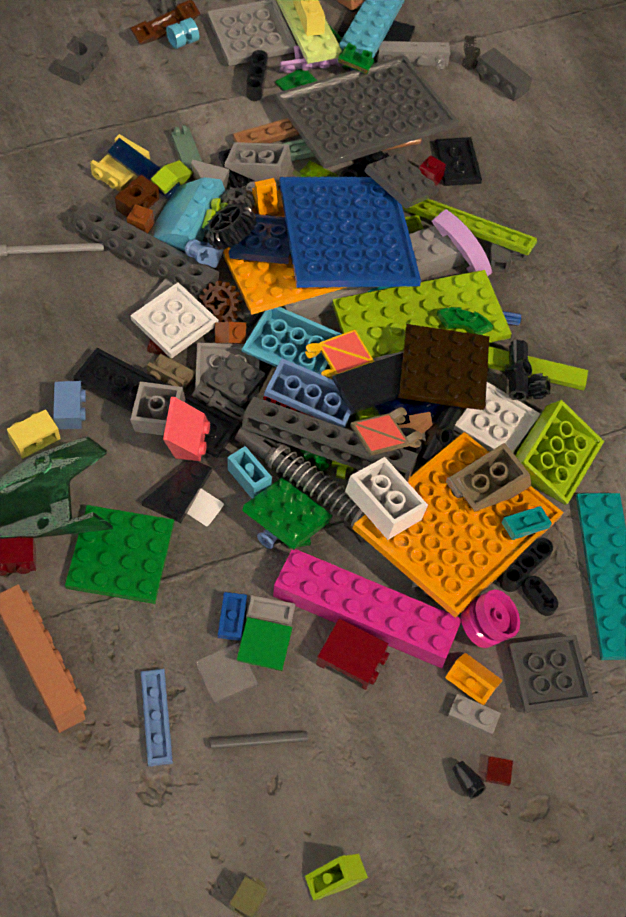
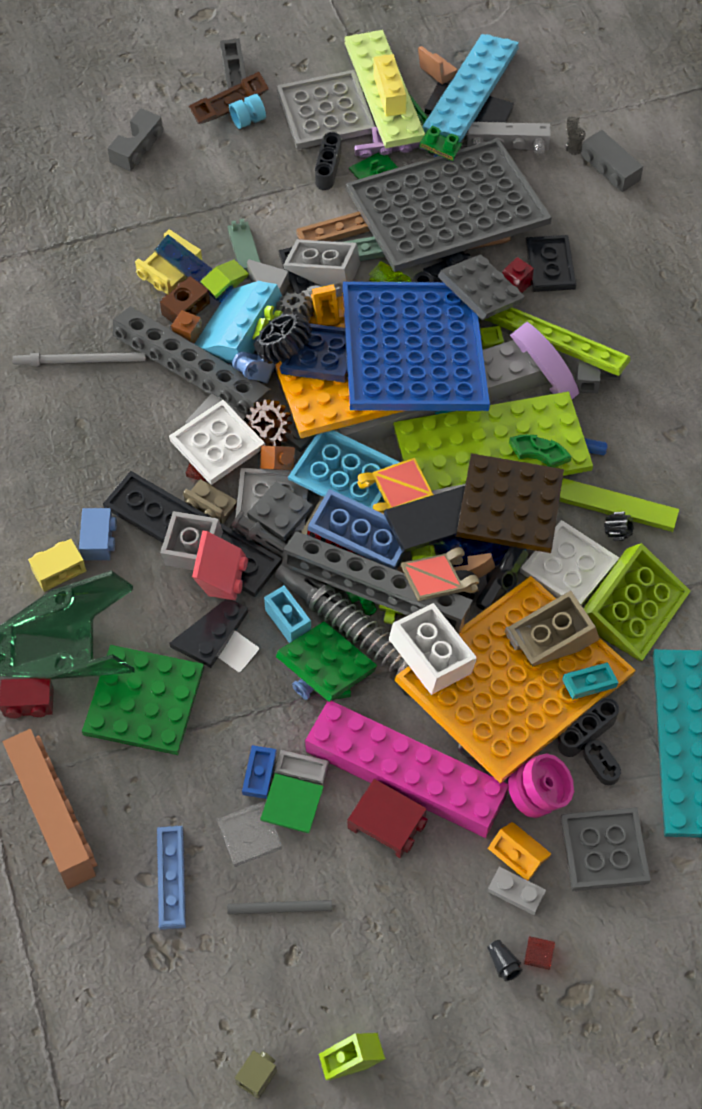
camera: 10 degrees right, 0 degrees up
(518, 370) = (597, 507): black piece -> none

